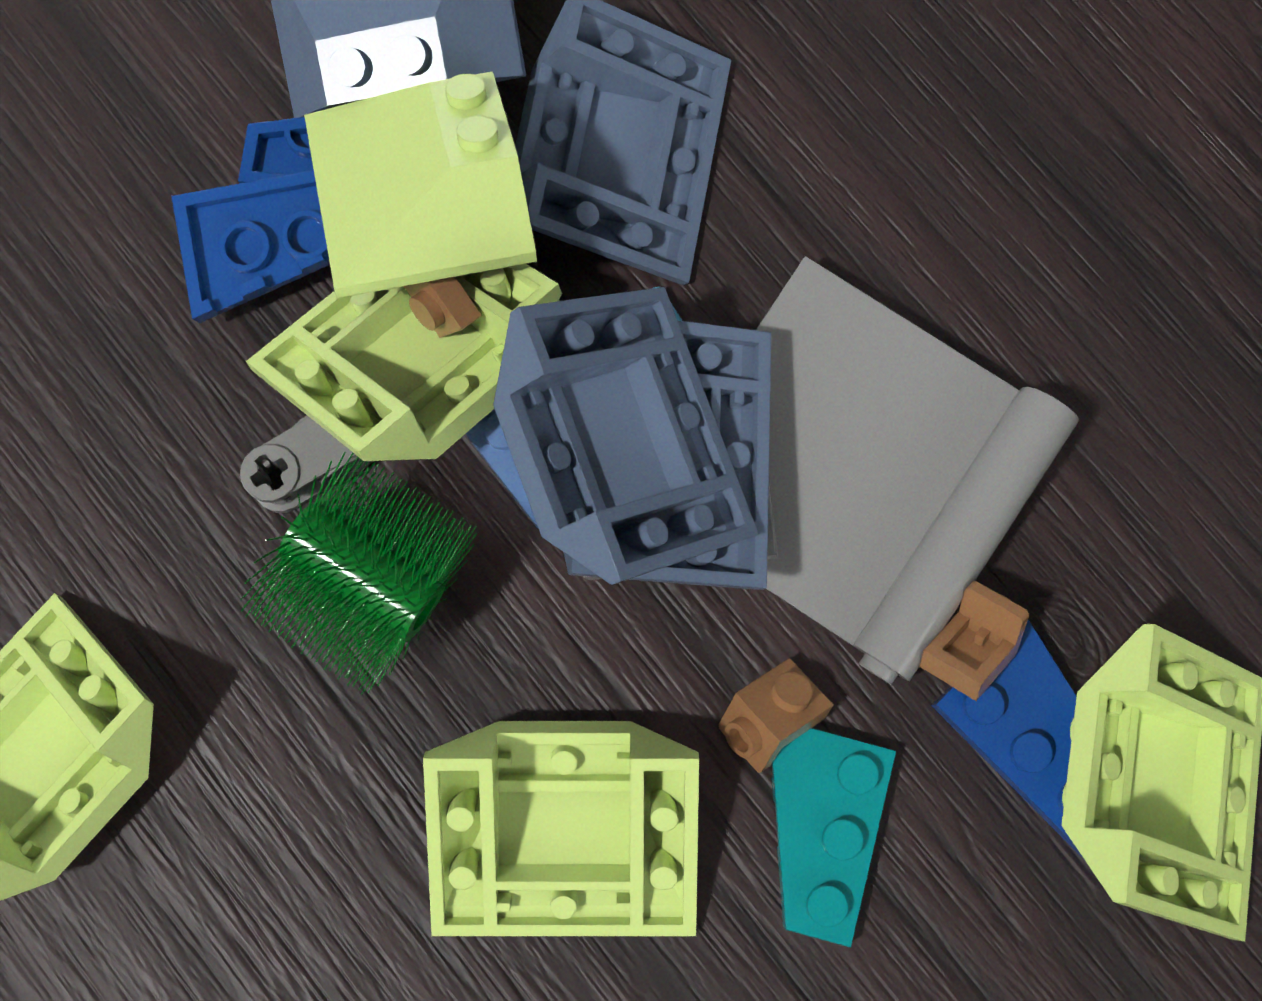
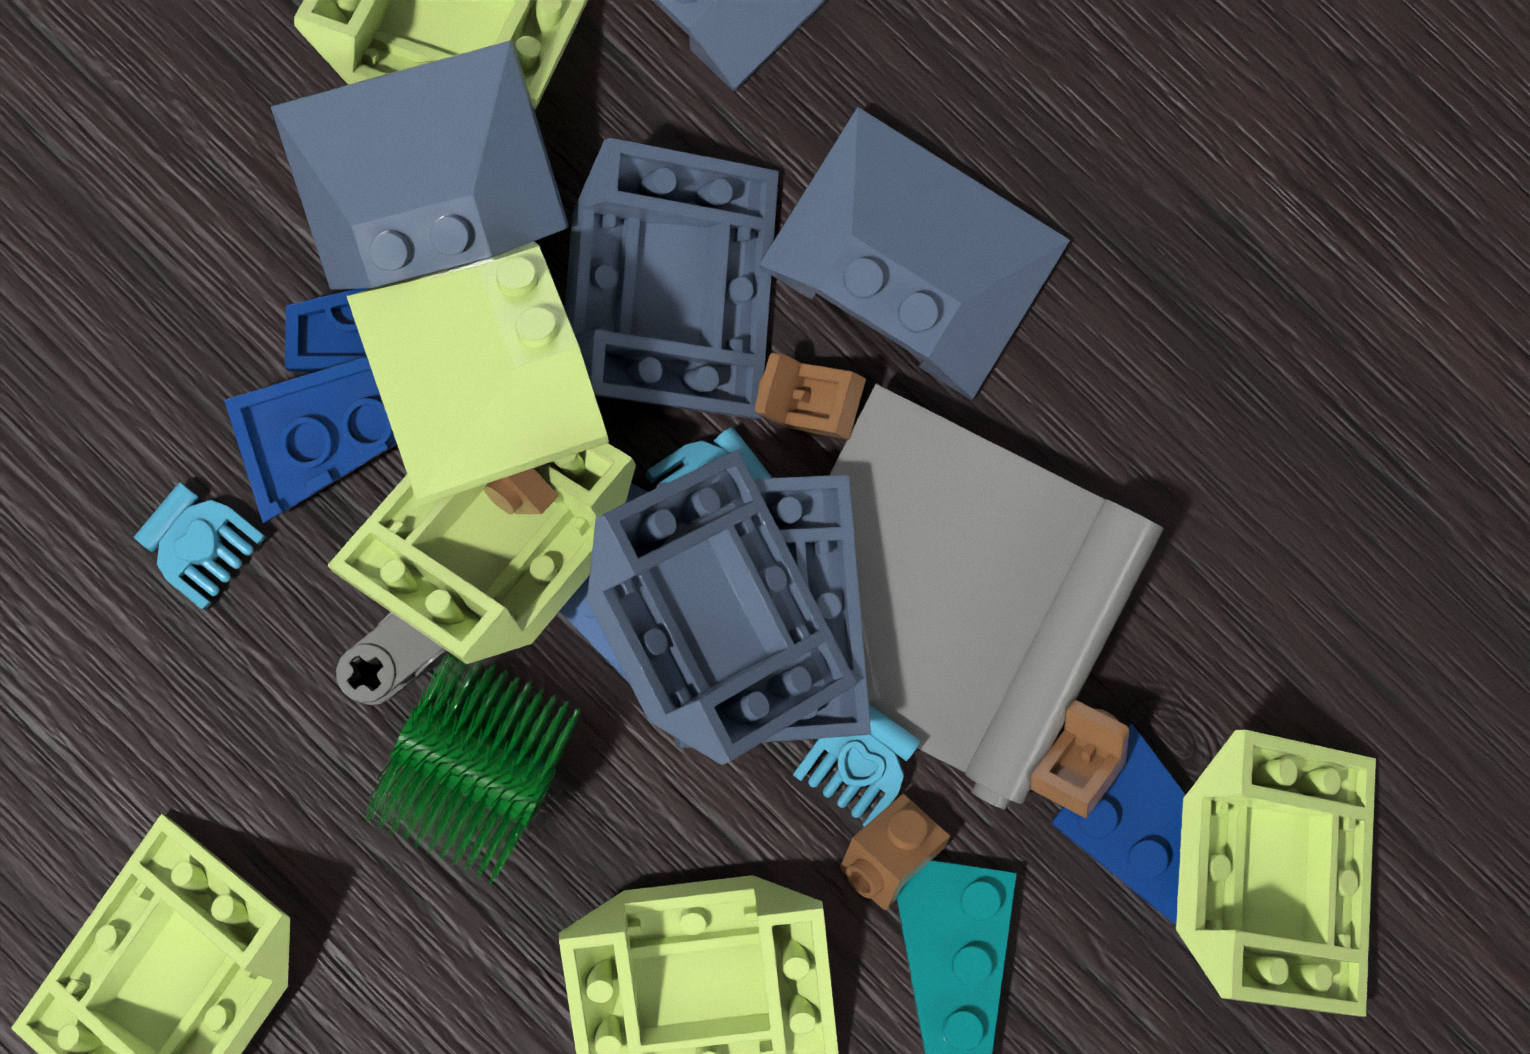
camera: 10 degrees left, 5 degrees up
(128, 331) = (192, 536): none -> medium azure piece
(738, 264) = (809, 396): none -> medium nougat bracket
(753, 619) = (863, 762): none -> medium azure piece
(854, 144) = (915, 251): none -> sand blue slope

